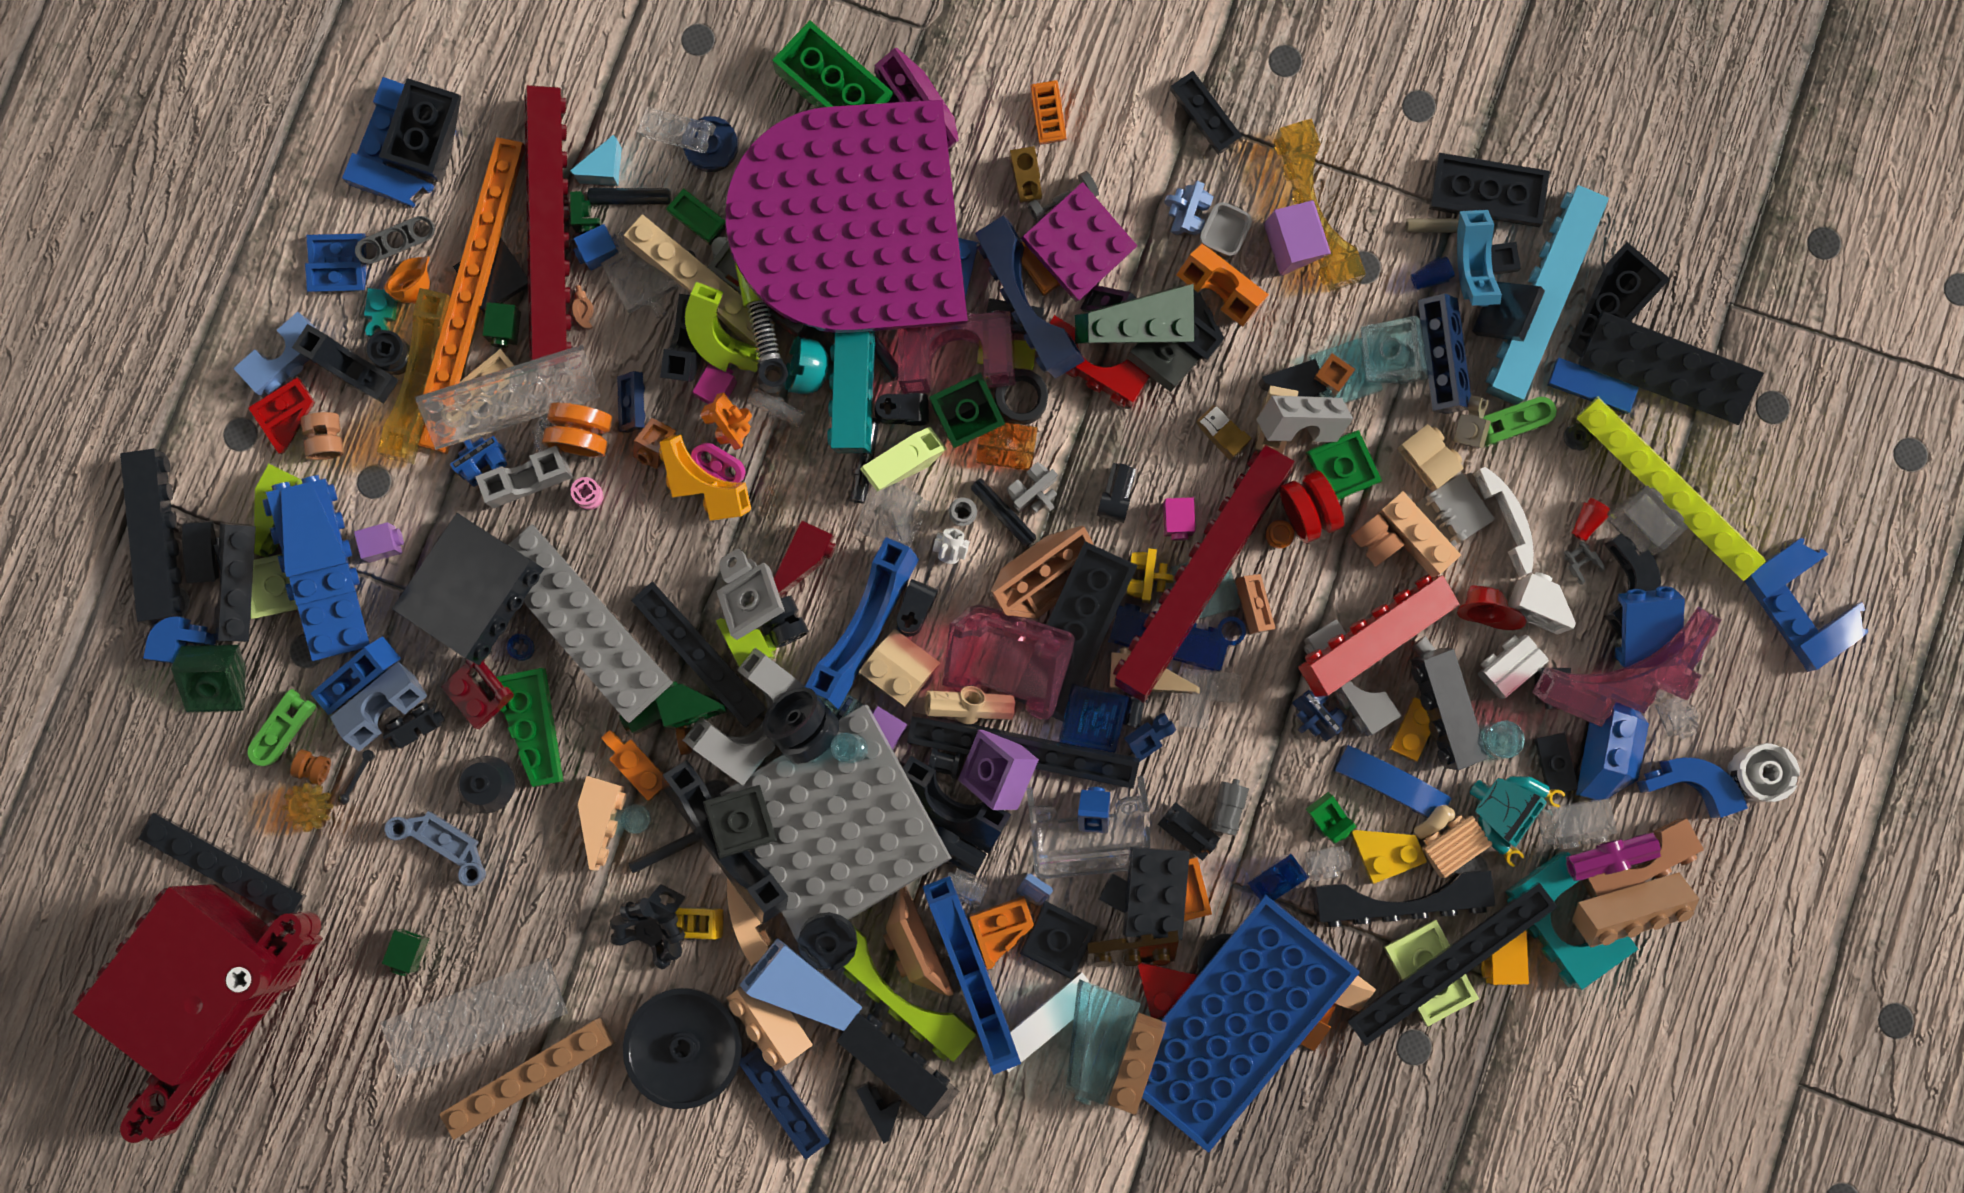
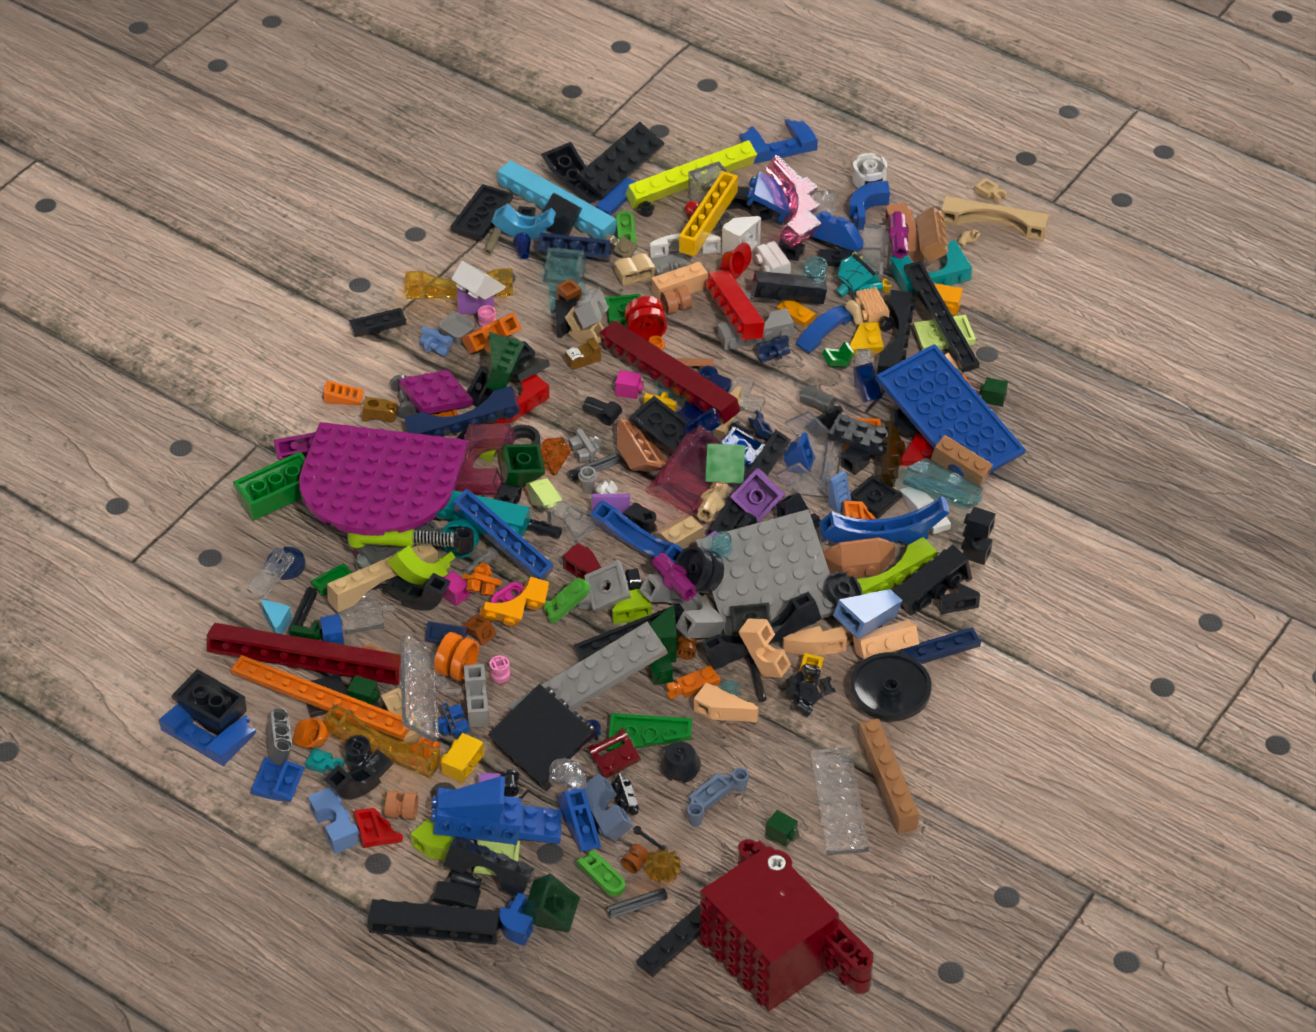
camera: 75 degrees left, 35 degrees down
(246, 788) = (636, 903): none -> black axle
(396, 565) = (510, 783): none -> black bush
(400, 643) = (568, 773): none -> clear piece
(423, 490) = (462, 757): none -> yellow brick
(686, 854) = (756, 636): none -> light nougat arch
(722, 549) = (566, 599): none -> bright green plate
(759, 705) = (674, 577): none -> magenta piece
(799, 427) = (502, 535): none -> blue brick
(929, 558) = (620, 501): none -> medium lavender tile
(987, 1121) = (978, 527): none -> black arch
(1023, 708) = (725, 463): none -> tile
(1094, 654) = (708, 420): none -> clear blue slope
(1261, 262) = (486, 315): none -> bright pink wheel
(1297, 233) = (476, 281): none -> white slope
(1321, 1077) = (994, 391): none -> dark green brick
(1426, 882) = (886, 322): none -> black hinge
(1563, 542) = (708, 213): none -> yellow brick
(1666, 962) = (967, 237): none -> tan arm
(1726, 1059) = (1028, 223): none -> tan arch
(1792, 975) = (990, 189): none -> tan plate

